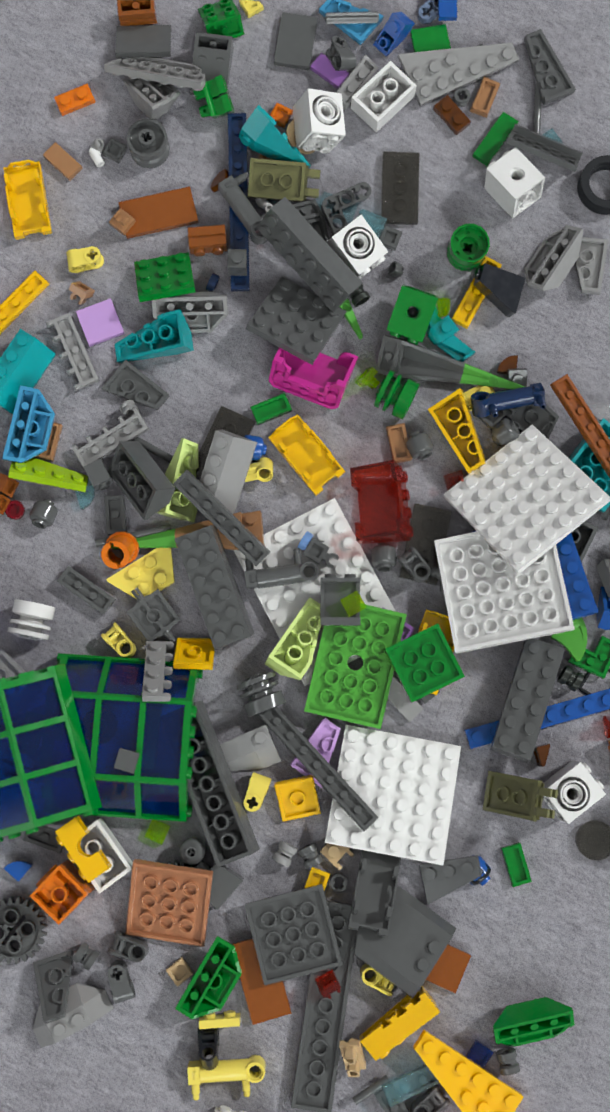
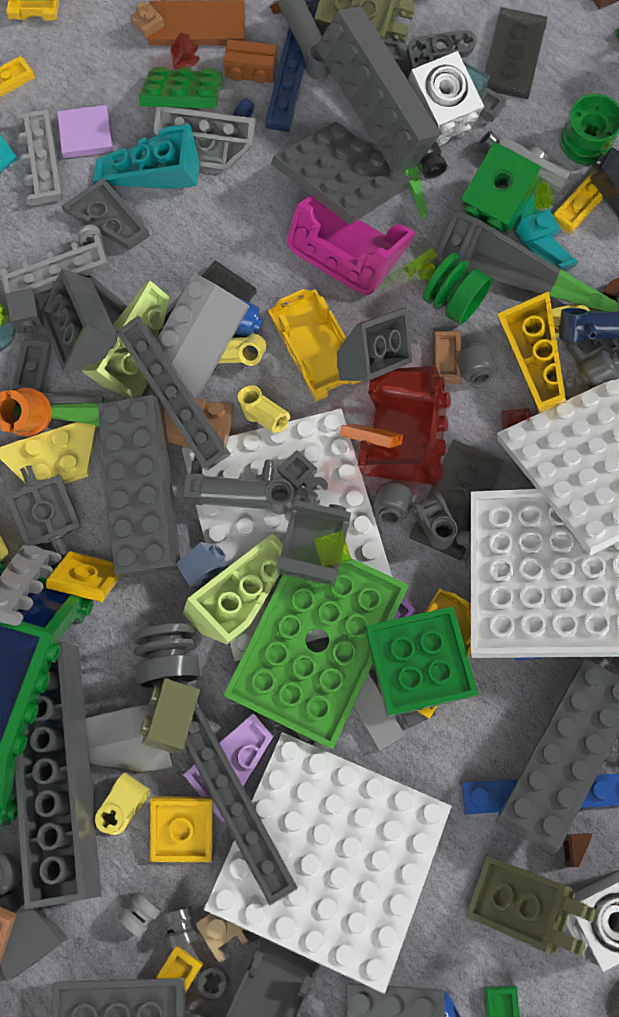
camera: 15 degrees right, 10 degrees down
(82, 290) = (71, 89): medium nougat tile -> none
(83, 259) = (84, 54): light yellow piece -> none
(155, 243) = (183, 52): none -> clear red tile
(237, 262) = (280, 87): dark grey brick -> none
(269, 629) = (202, 564): none -> sand blue brick
(271, 408) = (281, 278): green tile -> none
(275, 733) = (170, 716): none -> olive brick
(283, 512) = (262, 410): none -> light yellow piece
(305, 541) = (284, 451): medium blue tile -> none
(351, 457) = (375, 347): none -> dark grey slope
(360, 515) = (371, 435): none -> orange tile
(430, 281) = (550, 172): none -> light grey piece

